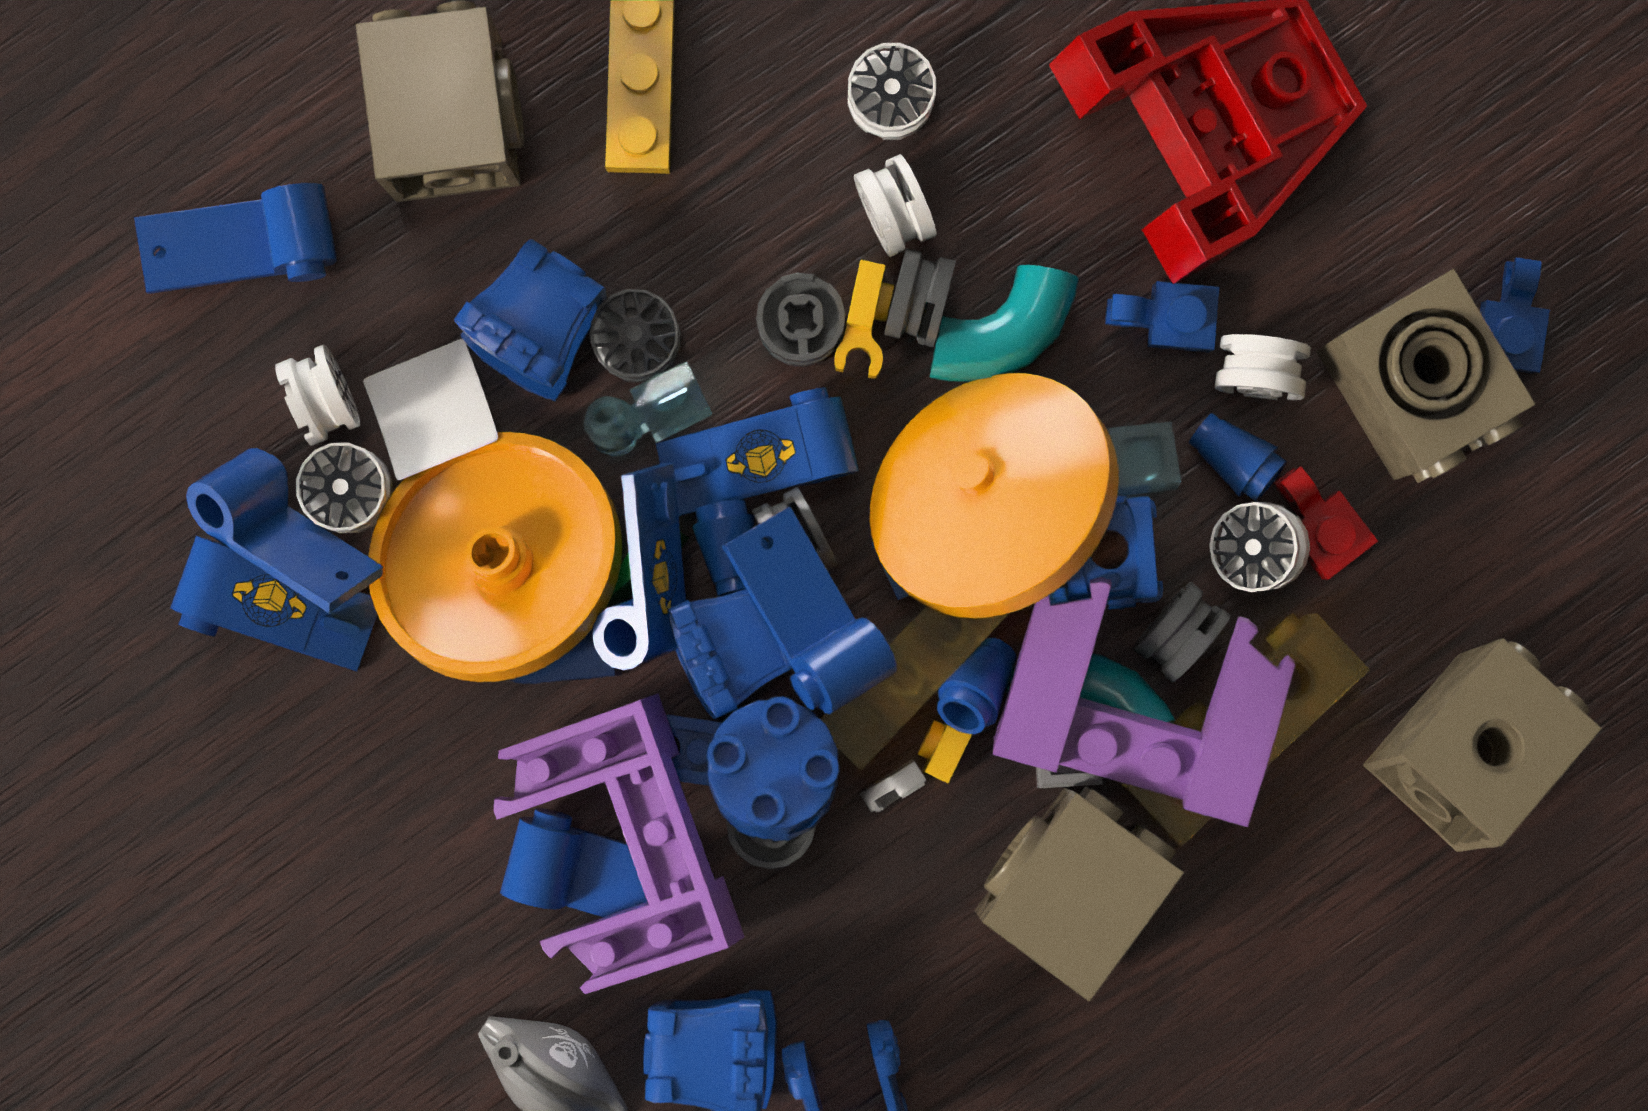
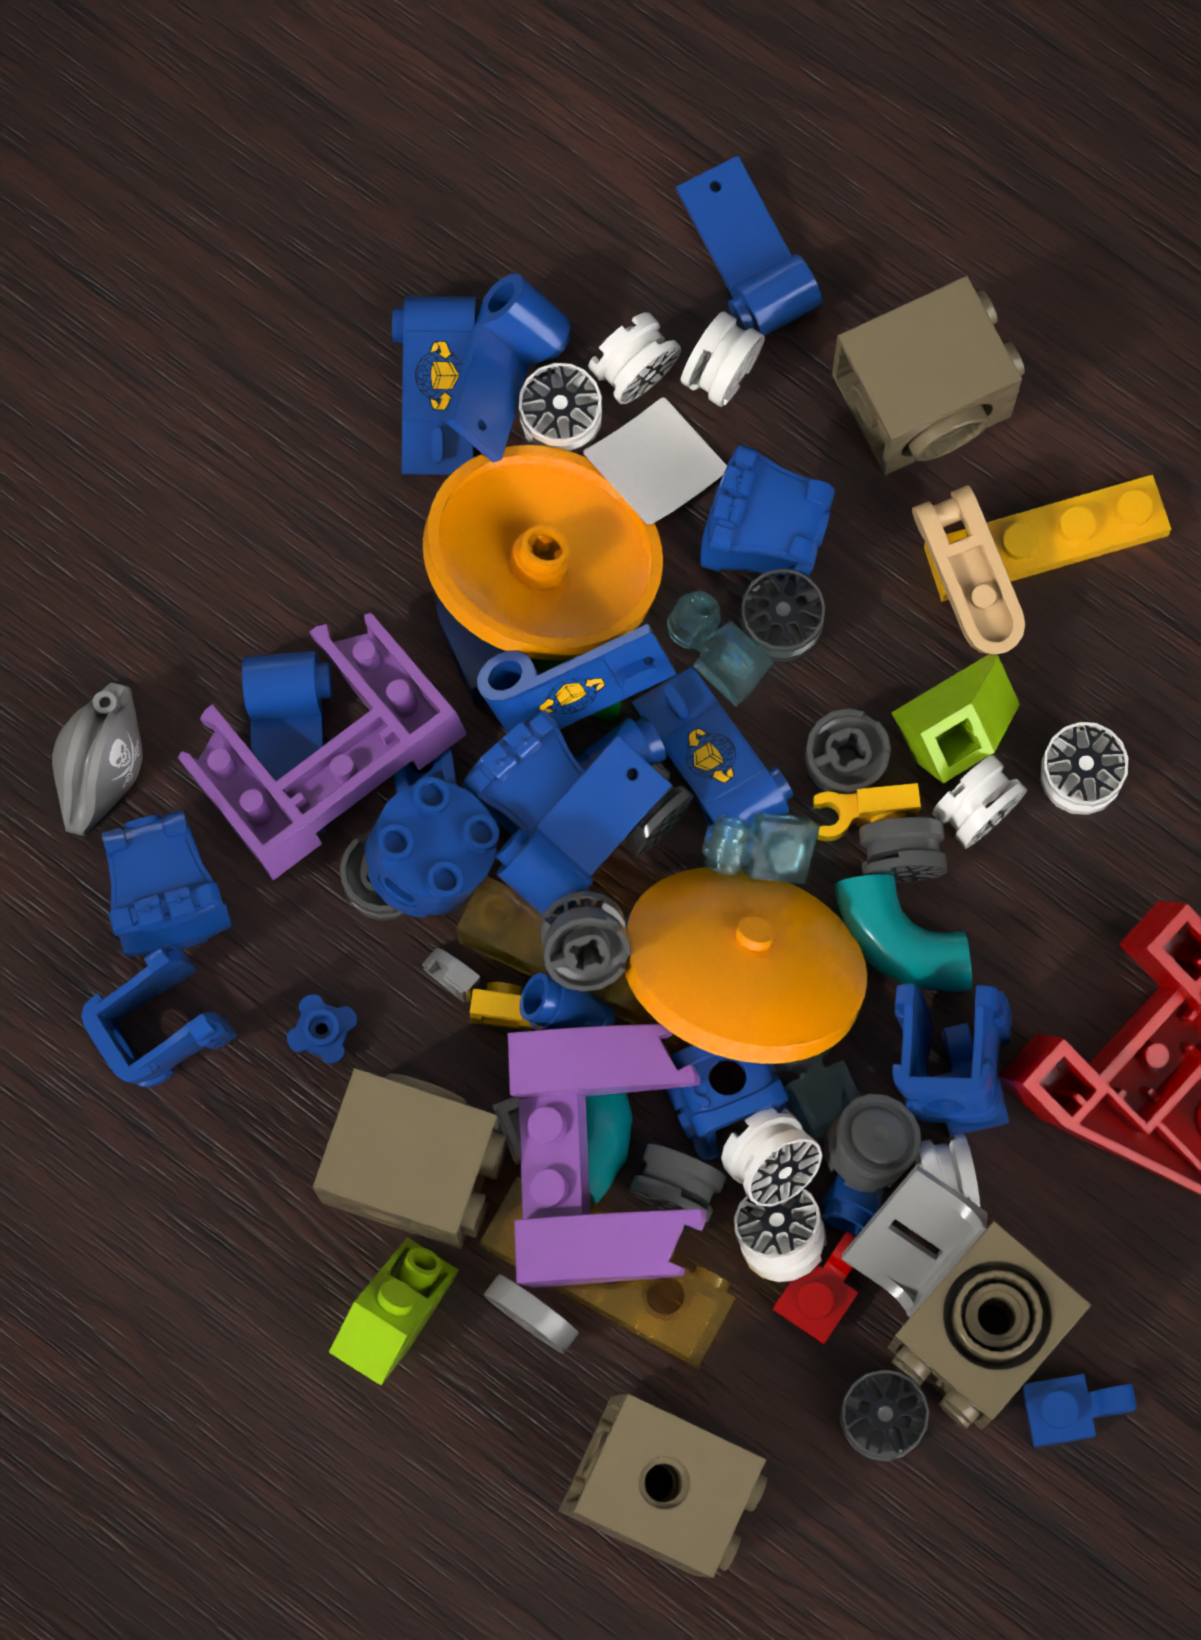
camera: 75 degrees right, 10 degrees down
(348, 306) = (722, 359): none -> white wheel
(661, 130) = (972, 573): none -> tan plate
(805, 196) = (959, 719): none -> lime slope
(876, 427) = (774, 850): none -> clear light blue plate
(907, 951) = (330, 1044): none -> blue plate
(935, 648) = (566, 942): none -> dark grey wheel
(1129, 267) = (947, 1098): none -> blue piece
(1196, 531) = (772, 1157): none -> white wheel
(1209, 427) = (872, 1142): none -> dark grey wheel
(1215, 952) = (393, 1311): none -> lime slope
(1269, 817) = (531, 1313): none -> light grey piece
(1341, 434) = (899, 1261): none -> light grey piece
(1466, 507) = (884, 1415): none -> dark grey wheel

